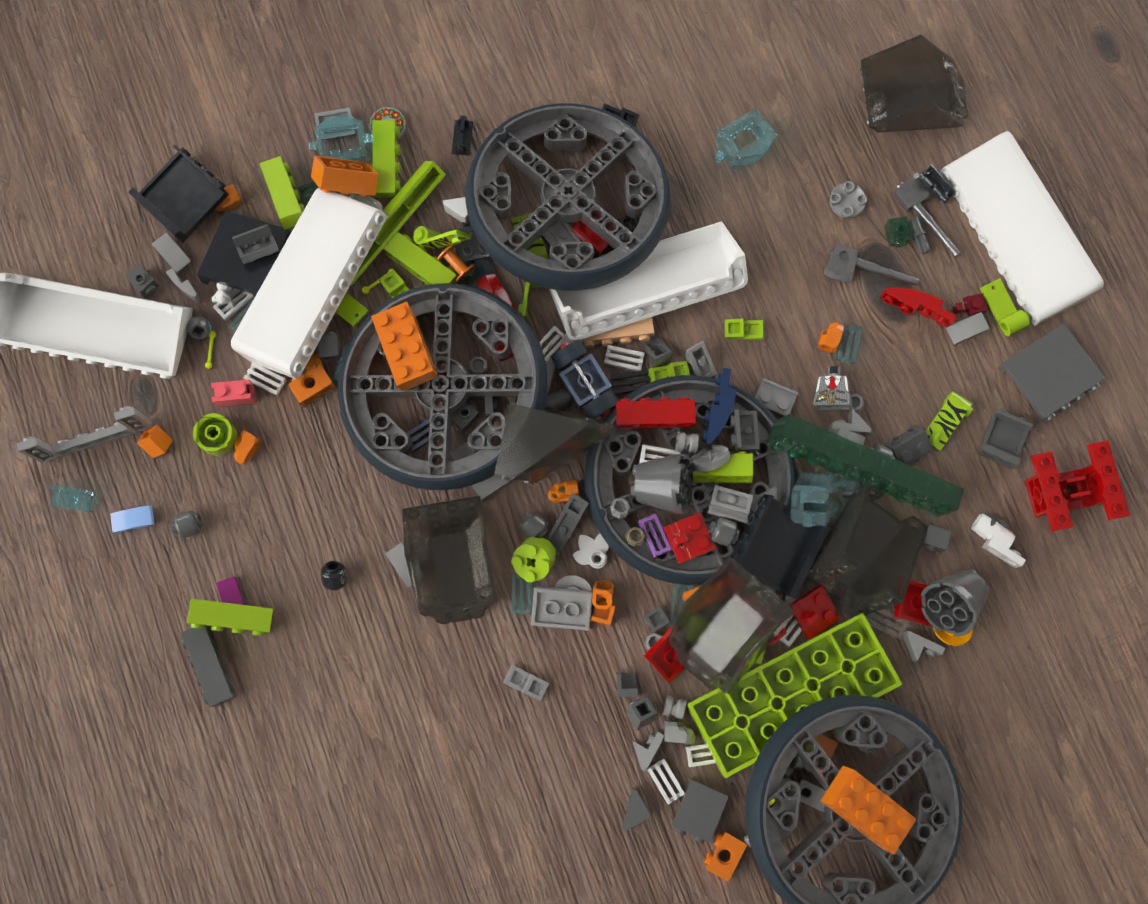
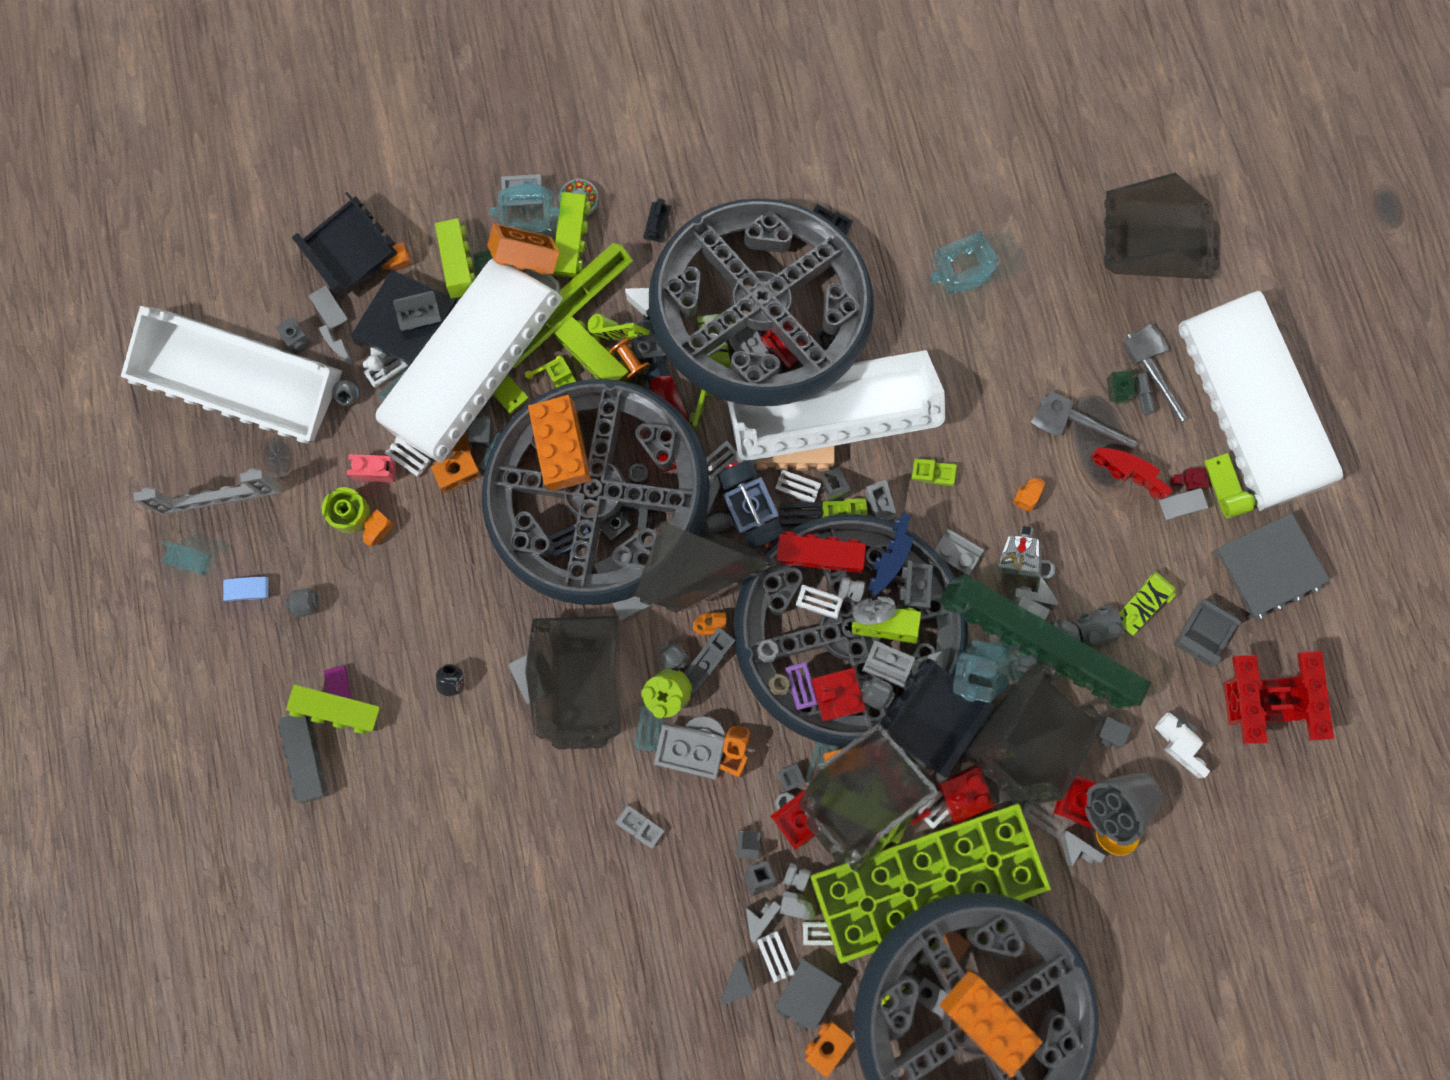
camera: 15 degrees right, 0 degrees up
(155, 441) = (281, 508): orange panel -> none
(208, 364) = (359, 402): neon yellow hinge -> none
(589, 549) = (729, 690): white plate -> none
(664, 483) = (819, 631): dark grey cone -> none
(847, 200) = (1070, 344): light grey dish -> none
(851, 329) = (1053, 487): clear light blue tile -> none
(938, 183) = (1176, 343): black hinge -> none

